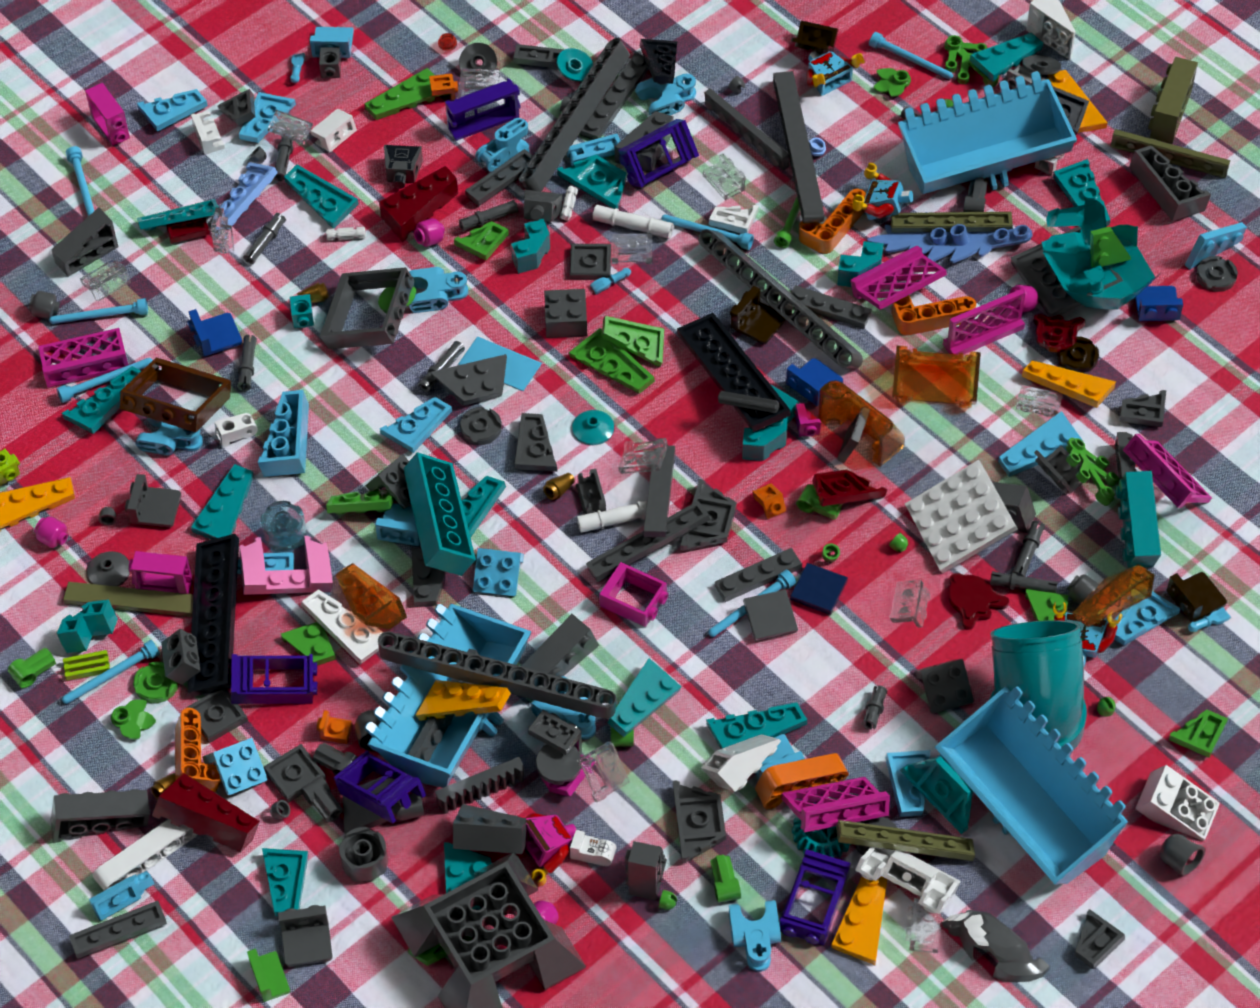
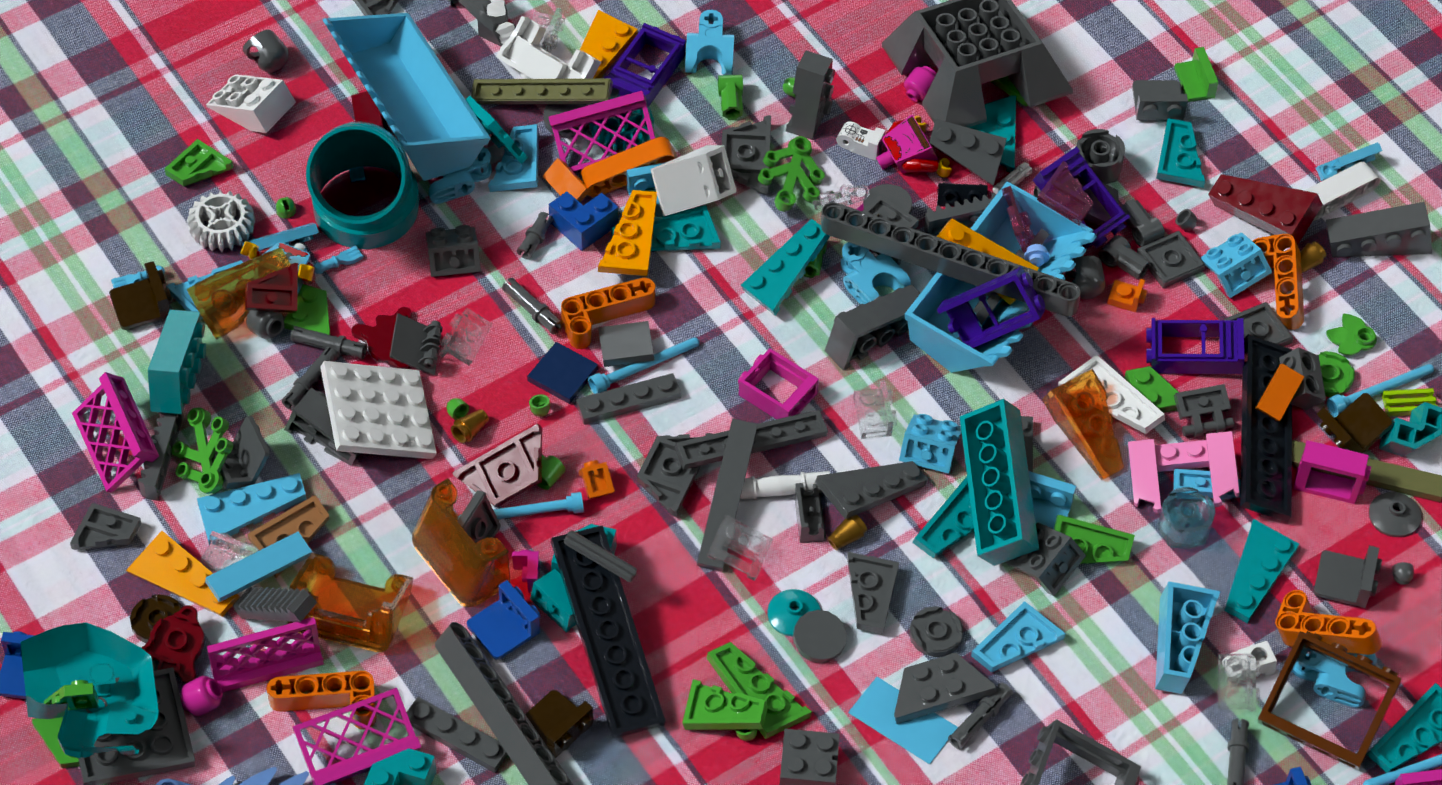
camera: 175 degrees left, 0 degrees up
(117, 929) = (1349, 132): dark grey plate -> none
(138, 620) = (1357, 425): none -> dark brown bracket
(149, 430) = (1353, 633): none -> orange beam
(202, 625) = (1279, 392): none -> orange tile
(244, 407) = (1238, 682): none -> clear bracket
(267, 624) = (1204, 402): none -> dark grey plate
(394, 761) = (1066, 195): none -> clear pink wing
(418, 721) = (1037, 254): none -> light blue plate
(434, 742) = (1019, 219): none -> clear pink wing
(442, 833) = (1014, 177): none -> white axle
(455, 634) = (966, 322): none -> dark purple door
(500, 804) = (959, 192): none -> black hinge
(549, 590) = (874, 412): none -> clear bracket
(550, 510) = (869, 487): none -> dark grey wing
(570, 405) = (819, 636): none -> dark grey tile
(653, 799) = (799, 150): none -> bright green plant
(770, 660) = (604, 305): none -> orange beam
(783, 478) = (572, 503): none -> medium azure piece
(785, 701) = (632, 237): none -> light orange wing
(832, 720) = (585, 222): none -> blue brick
(854, 637) = (539, 312): none -> dark grey pin
(859, 762) = (564, 180): none -> orange tile
(884, 528) = (467, 427): none -> pearl gold cone
(947, 583) = (416, 343): none -> dark grey hinge
(990, 348) = (274, 604): none -> dark grey gear
(1001, 425) = (305, 517): none -> medium nougat wing
(1012, 386) = (258, 566): none -> medium azure tile
(1081, 588) = (274, 291): none -> dark red wing
(1106, 665) = (302, 233): none -> medium azure plate
(1169, 684) = (222, 228): none -> white gear

